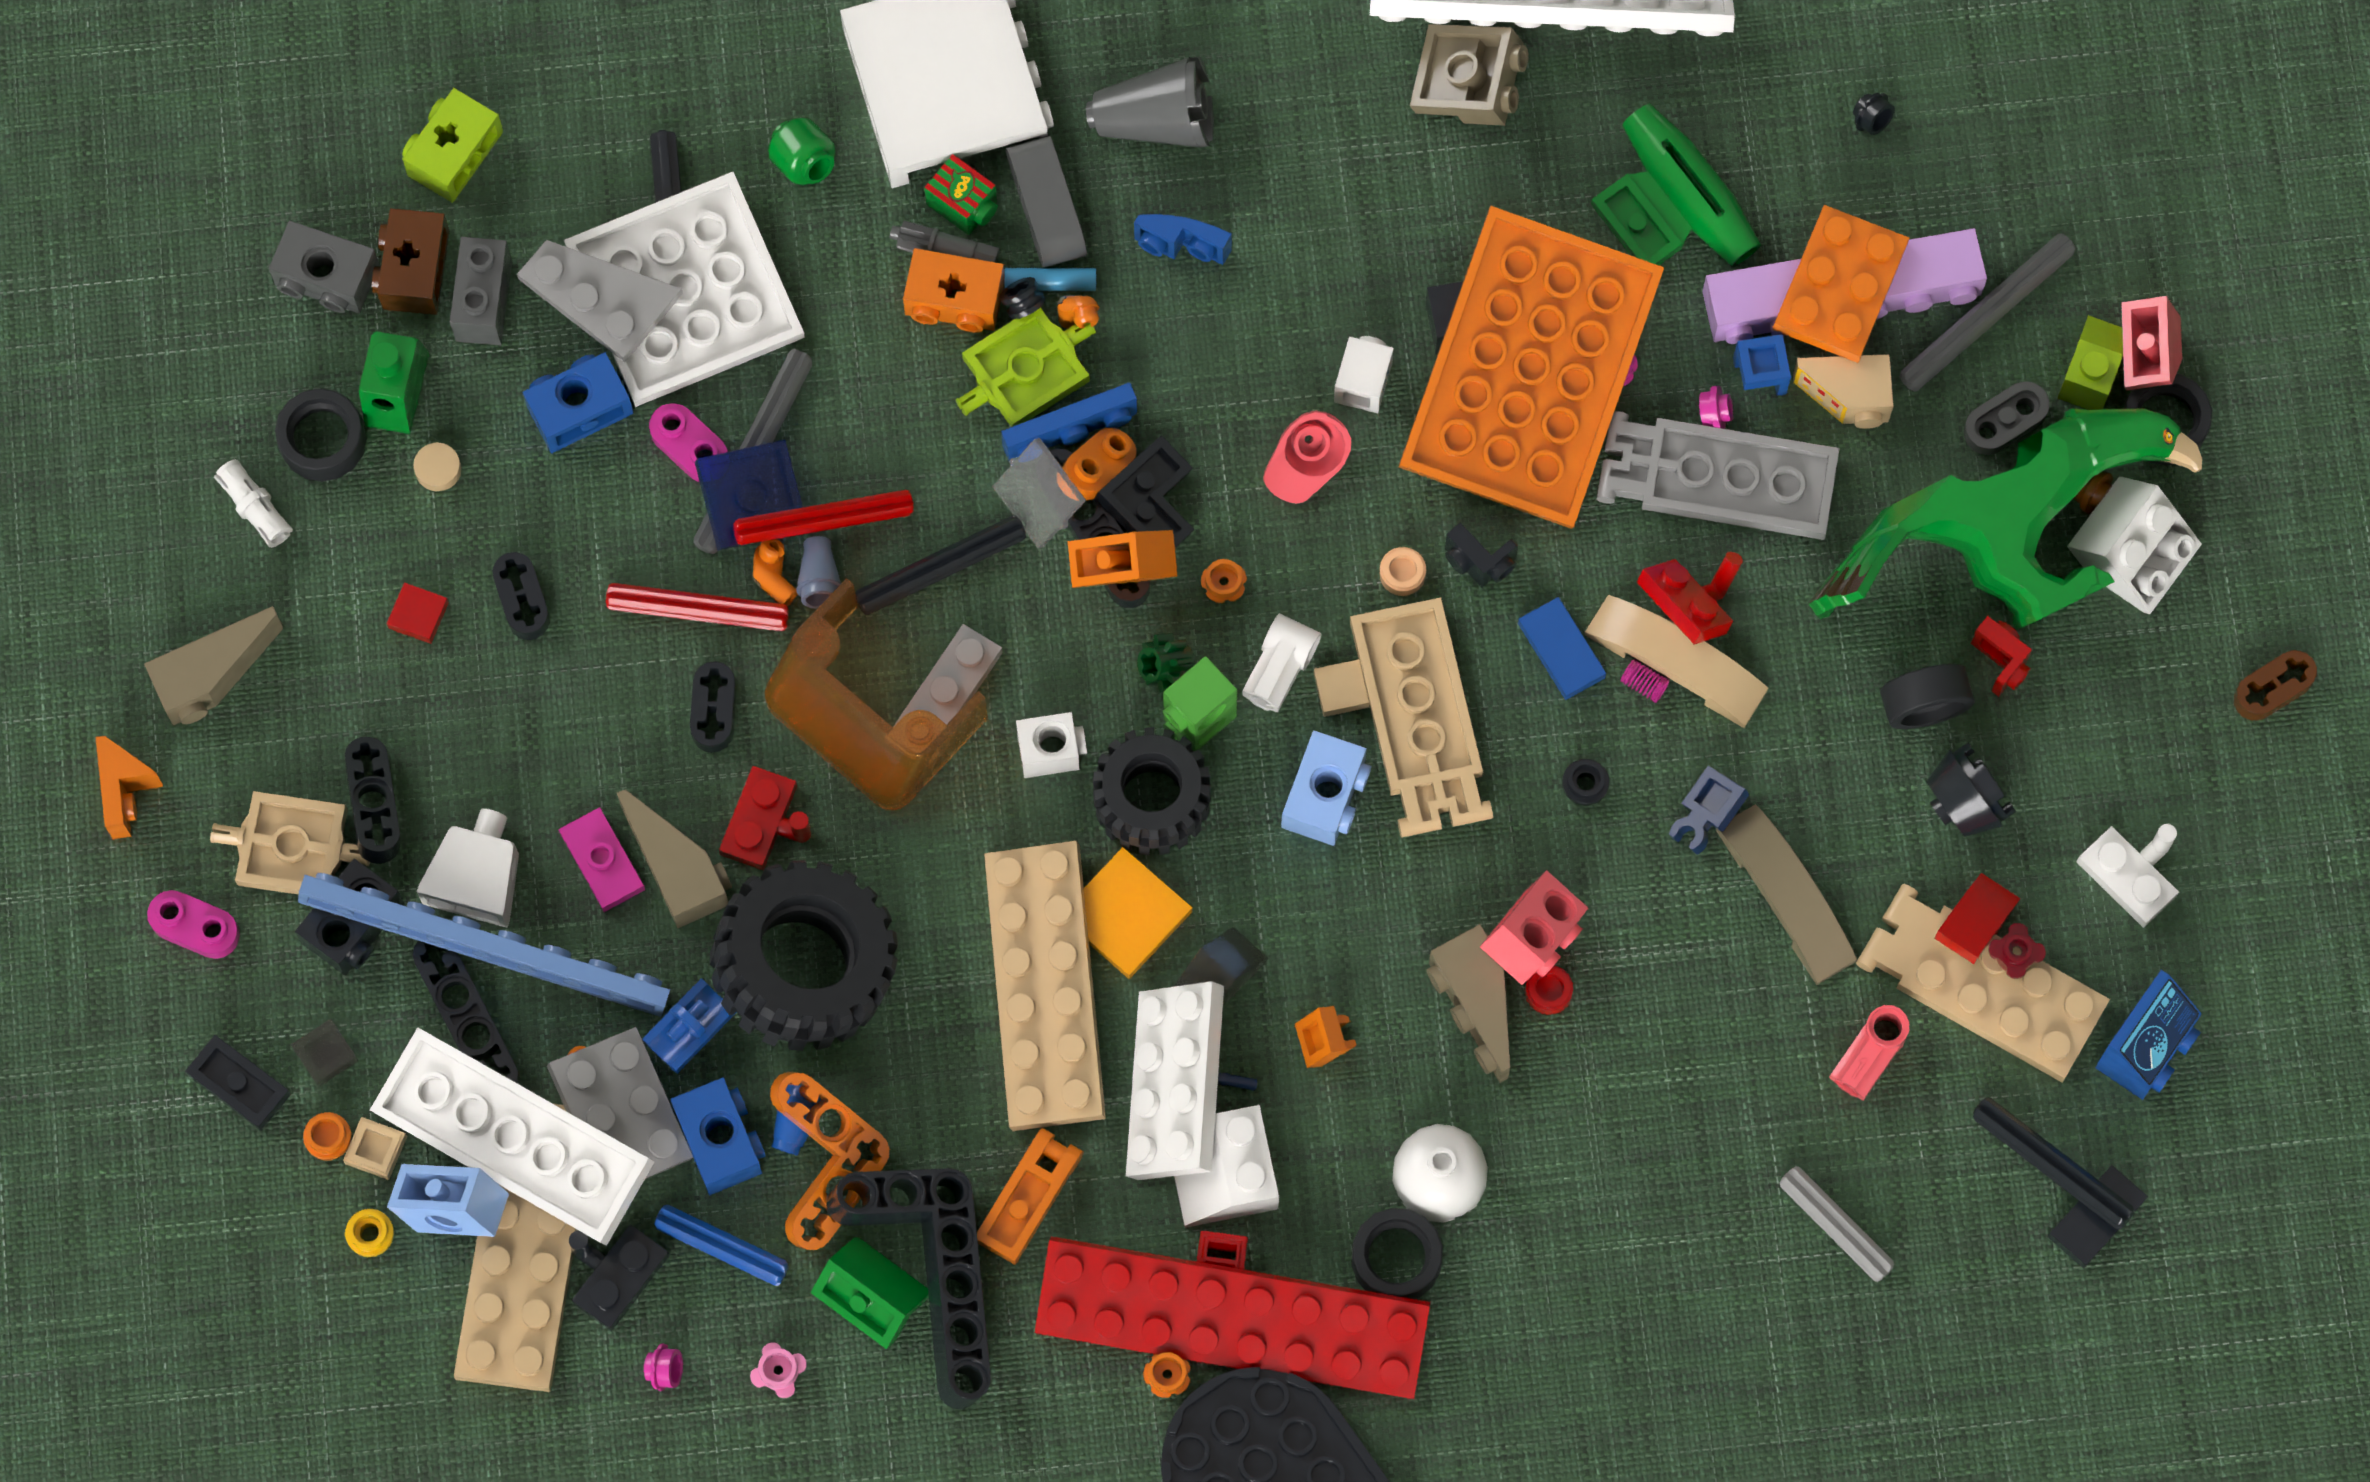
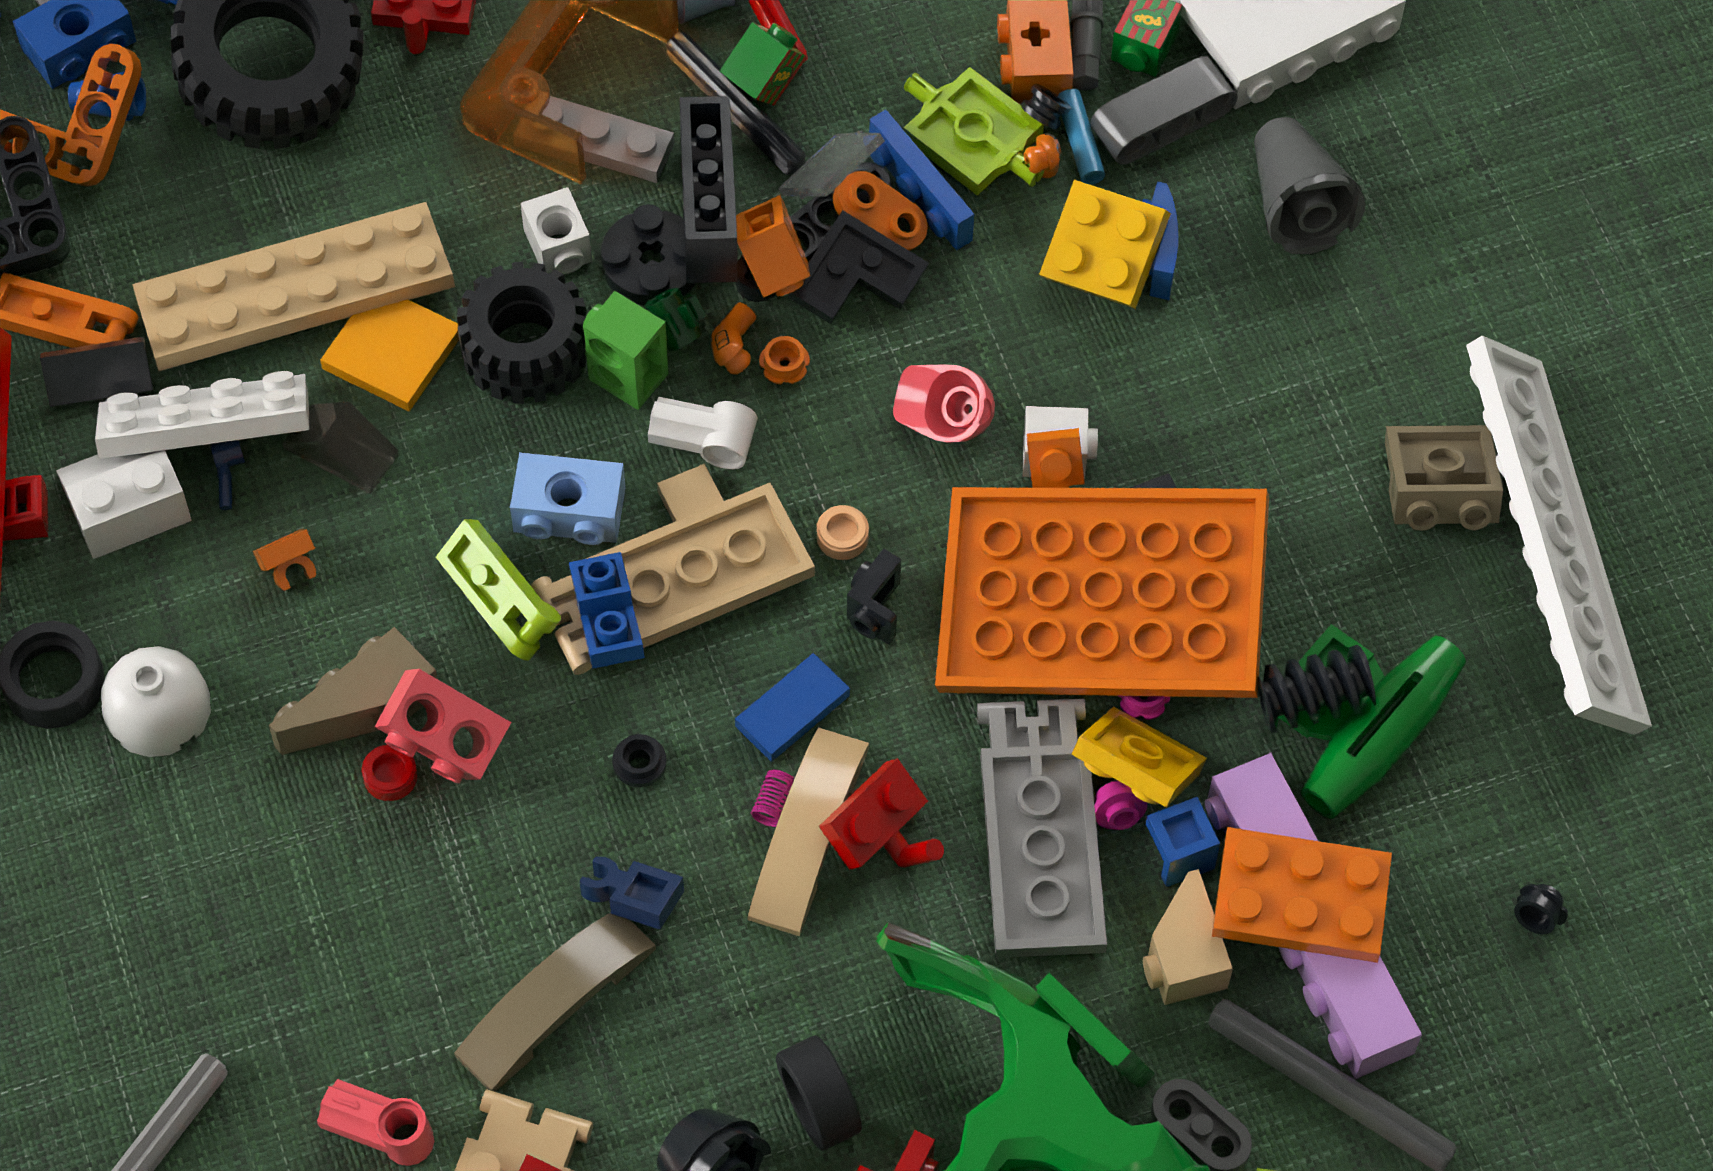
camera: 75 degrees right, 10 degrees down
(917, 526) = (764, 62): none -> green brick
(1053, 598) = (708, 189): none -> black brick
(1086, 644) = (623, 249): none -> black plate
(1097, 1171) = (96, 371): none -> black tile
(1182, 283) = (1105, 244): none -> yellow plate
(1190, 624) = (727, 339): none -> orange arm
(1397, 375) = (1055, 459): none -> orange plate
(1401, 863) = (497, 589): none -> lime plate
(1450, 775) = (606, 610): none -> blue slope
(1659, 219) = (1315, 687): none -> black piece
(1683, 379) = (1138, 757): none -> yellow plate
(1932, 468) = (1094, 1031): none -> green tile

